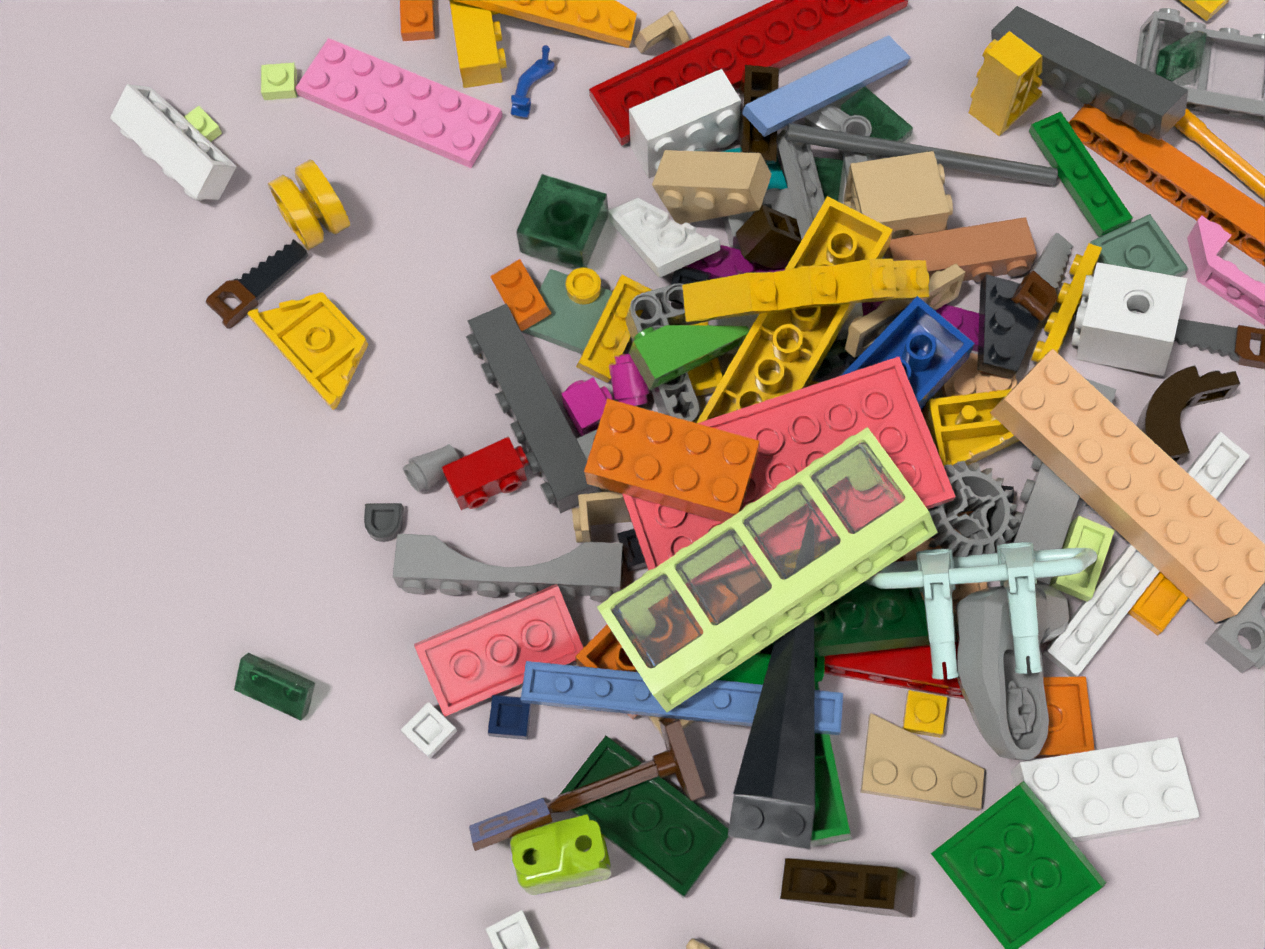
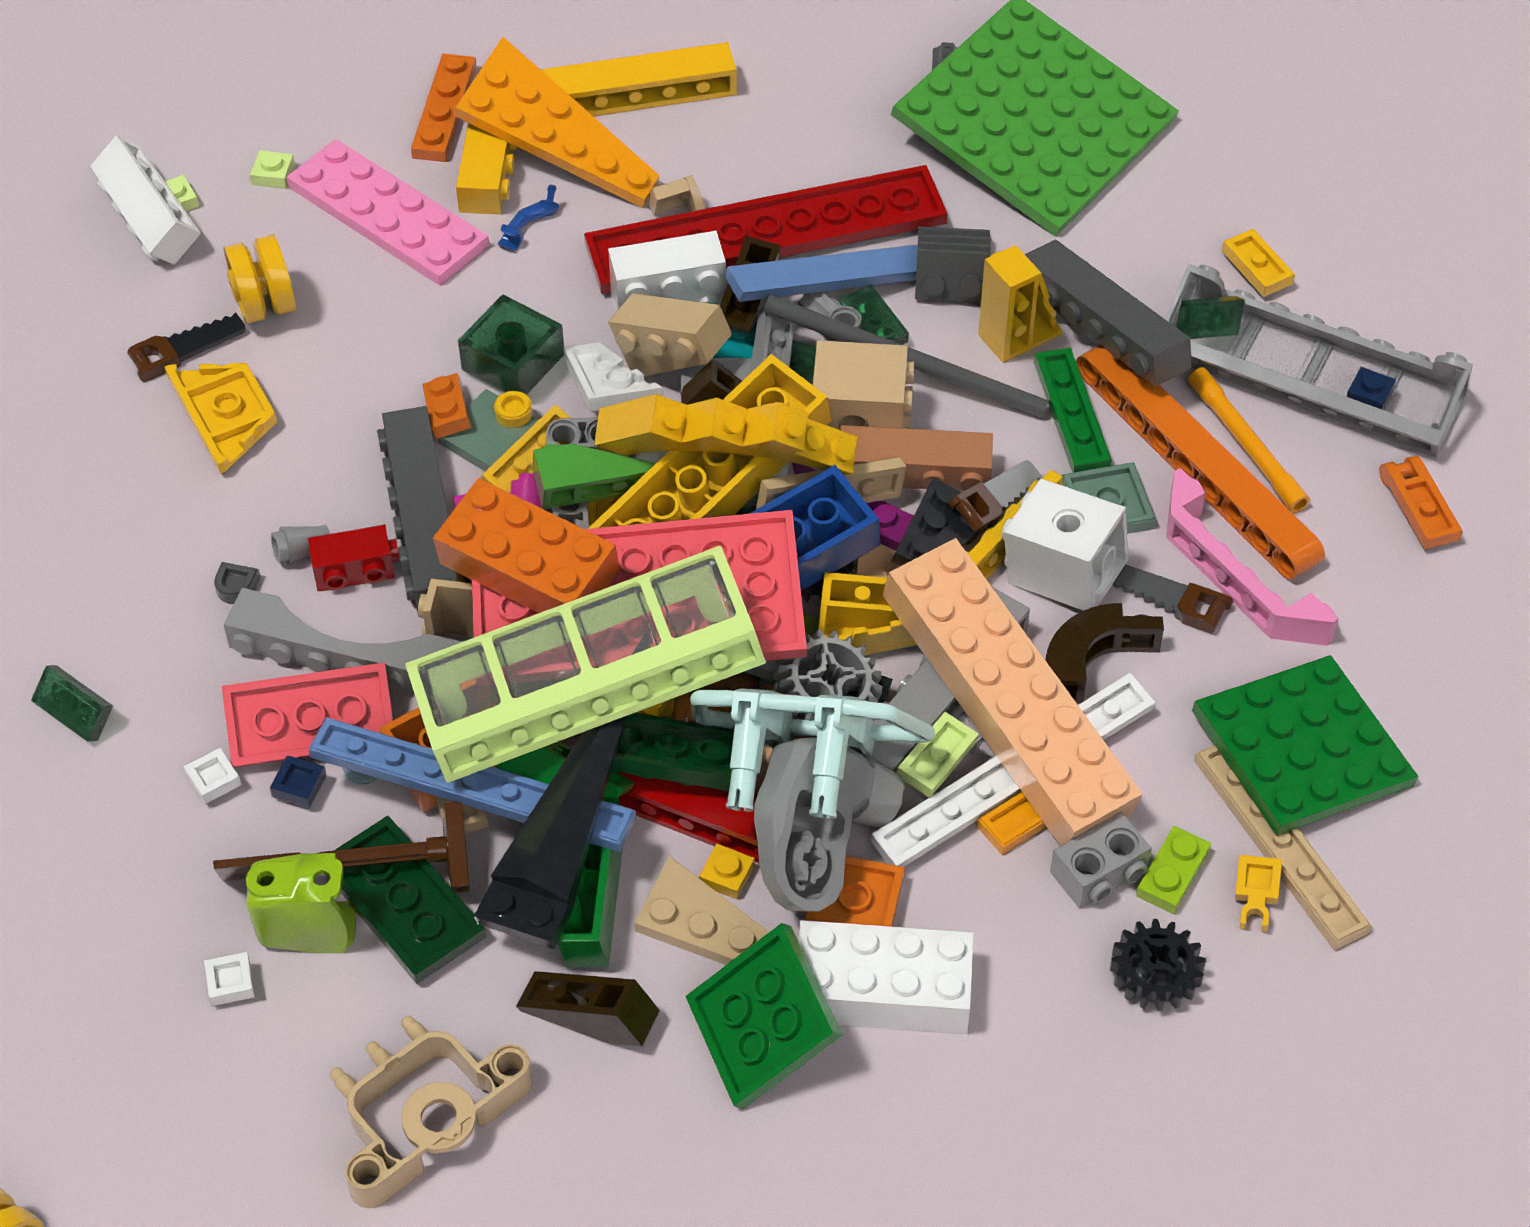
camera: 10 degrees right, 15 degrees down
(929, 47) = (951, 263): none -> dark grey plate

